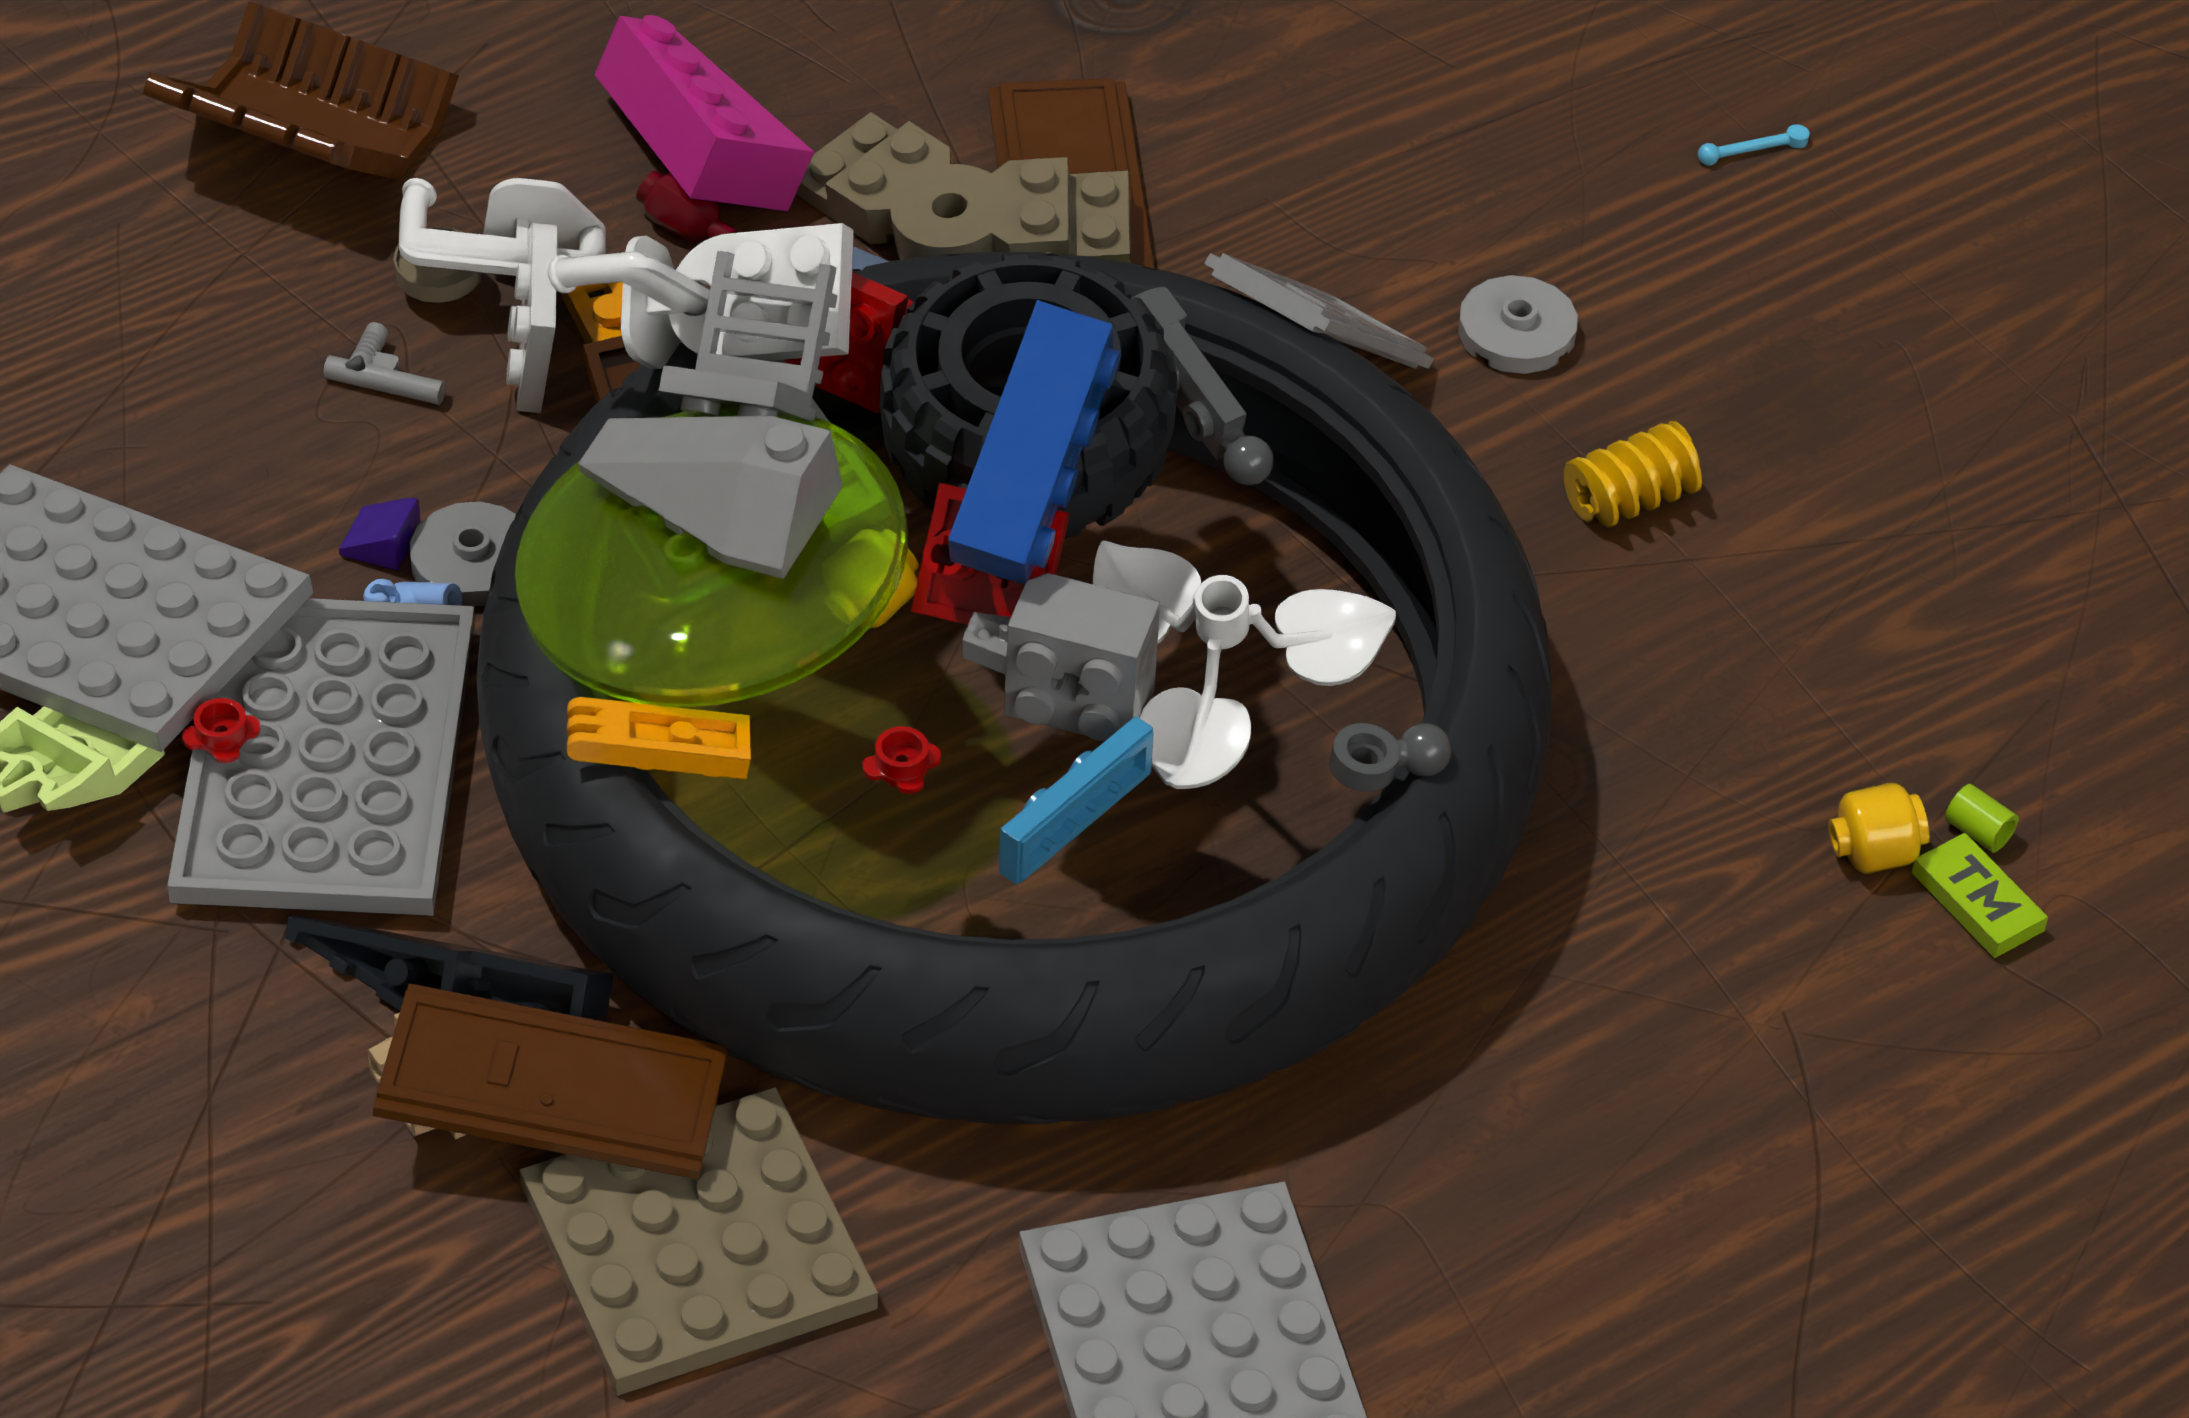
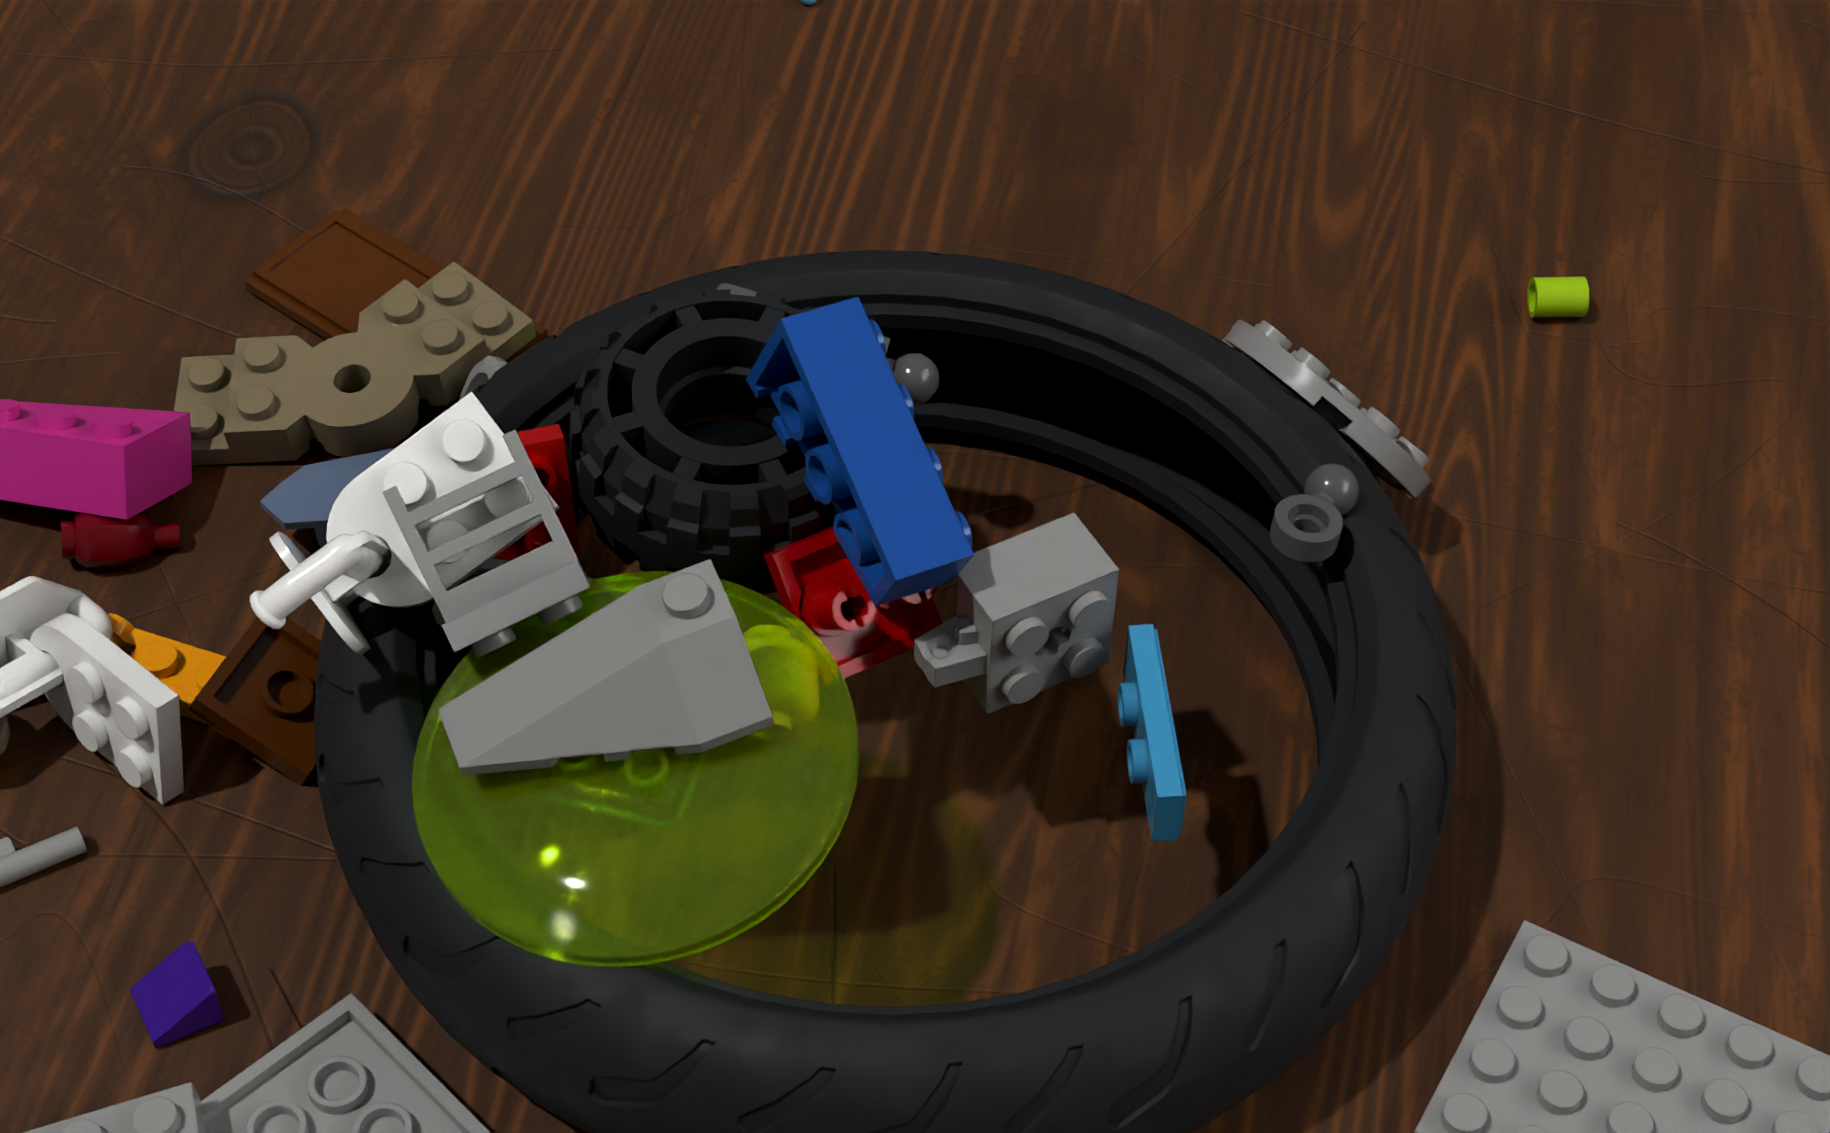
camera: 45 degrees left, 0 degrees up
(413, 592) = (277, 1027): light blue arm -> none
(461, 547) = (286, 978): light grey plate -> none
(658, 737) = (781, 955): light orange hinge -> none
(902, 759) = (975, 795): red plate -> none
(1202, 737) = (1139, 461): white plant -> none
(1318, 311) = (739, 250): light grey piece -> none
(1518, 324) = (839, 188): light grey plate -> none
(1596, 731) = (1364, 430): none -> light grey plate
(1633, 474) = (1066, 224): yellow piece -> none
(1879, 828) = (1525, 348): yellow head -> none
(1979, 895) = (1621, 349): lime tile -> none

